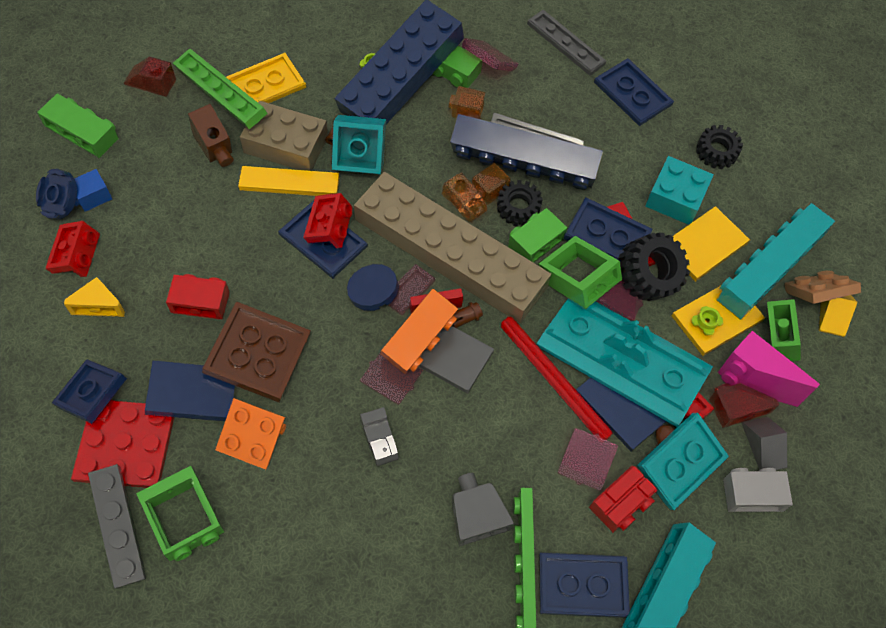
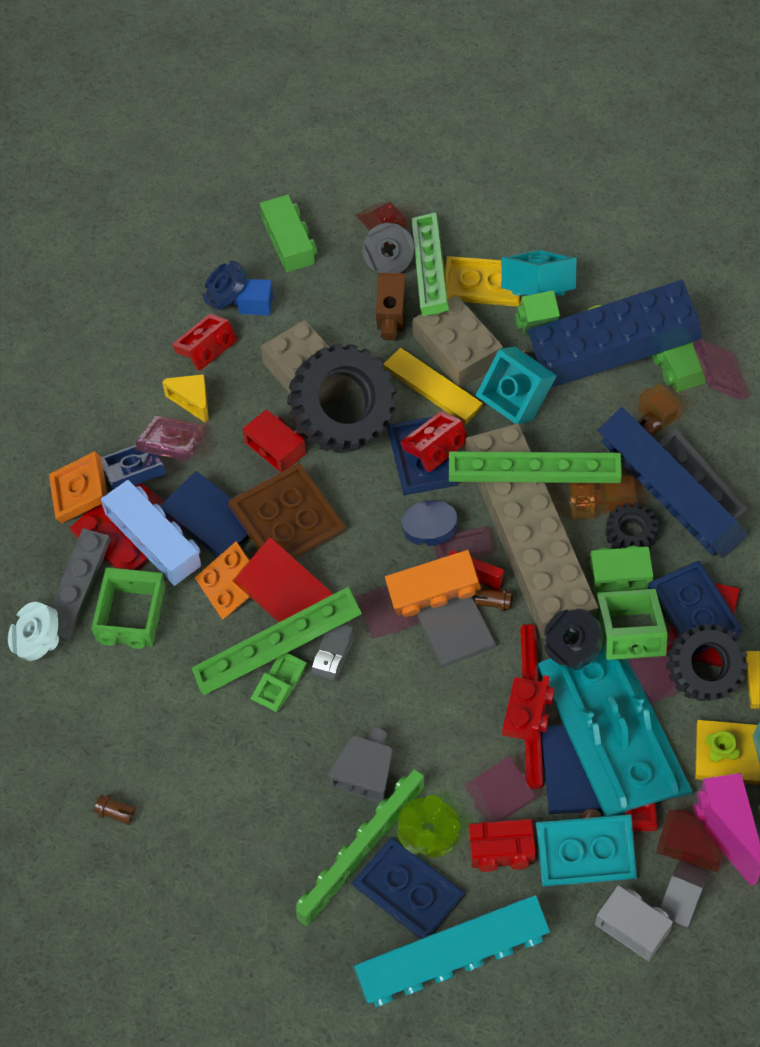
camera: 45 degrees right, 5 degrees down
(53, 439) = (78, 487): none -> orange plate
(106, 347) = (171, 438): none -> clear pink tile
(124, 589) = (34, 631): none -> light aqua plate
(153, 436) = (152, 532): none -> light blue brick
(161, 95) = (393, 234): none -> dark grey plate
(178, 222) = (290, 350): none -> dark tan brick
(251, 203) = (371, 379): none -> black tyre
(301, 411) = (279, 582): none -> red tile
(310, 52) = (538, 273): none -> teal brick
(331, 81) = (536, 311): none -> bright green brick
(331, 460) = (276, 641): none -> bright green plate
(354, 489) = (279, 682): none -> bright green slope
(426, 197) = (535, 467): none -> bright green plate
(562, 382) = (526, 708): none -> red bracket
(566, 319) = (589, 643): none -> black plate
(572, 514) = (431, 811): none -> clear neon green plate

